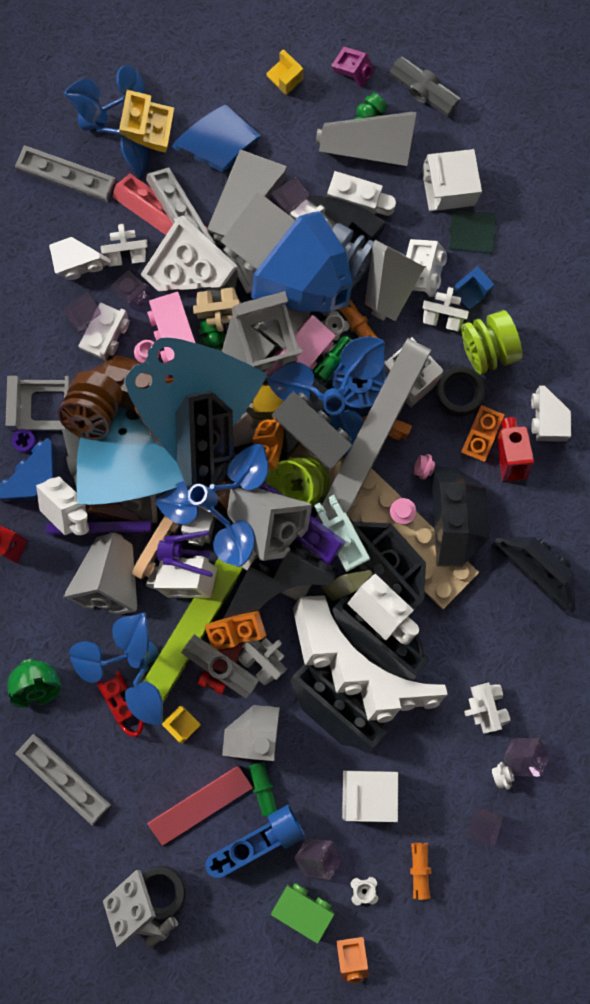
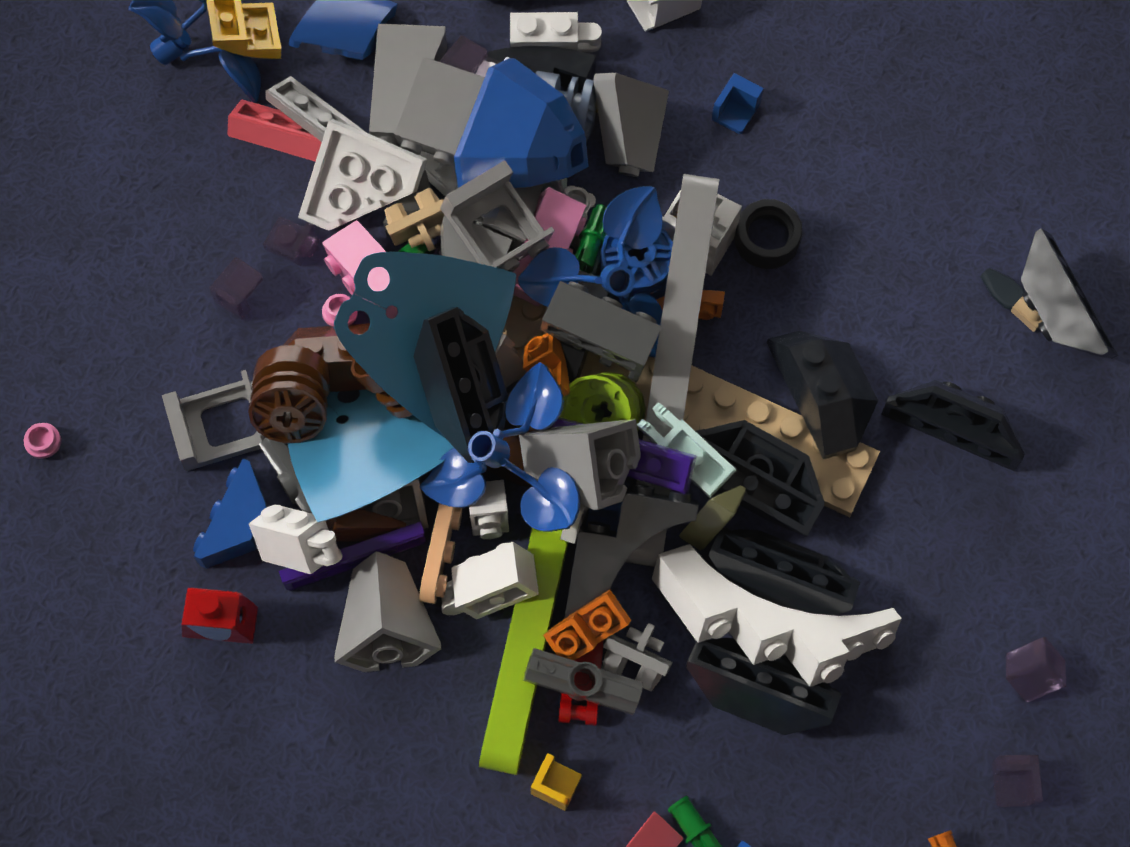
camera: 20 degrees left, 10 degrees down
(16, 439) = (198, 479): dark purple bush -> none
(32, 682) = (329, 794): green cylinder -> none
(65, 173) = (155, 124): light grey tile -> none
(74, 258) = (207, 219): white slope -> none
(104, 331) = (272, 304): white bracket -> none
(113, 689) = (469, 790): red piece -> none
(132, 636) = (453, 671): blue plant -> none
(136, 248) = (252, 197): white hips -> none
(169, 551) = (464, 549): dark purple plant -> none
(253, 734) = (661, 764): light grey slope -> none
(266, 400) = (524, 314): yellow panel -> none
(357, 322) = (601, 188): orange pin -> none
(370, 796) = (849, 789): white piece -> none
(384, 610) = (779, 533): white brick -> none
(403, 511) = (753, 402): bright pink plate -> none
(424, 466) = (757, 340): bright pink plate -> none
(433, 258) = (676, 80): white bracket -> none
(456, 315) = (727, 142): white hips -> none
(472, 231) = (708, 39): clear green piece -> none
(482, 433) = (817, 276): orange slope -> none
(484, 707) = (957, 623): white hips -> none
(496, 341) = (787, 157): lime wheel -> none
(503, 776) = (1015, 705): white plate -> none
(514, 451) = (868, 284): red torso -> none
(552, 417) = (897, 229): white slope -> none

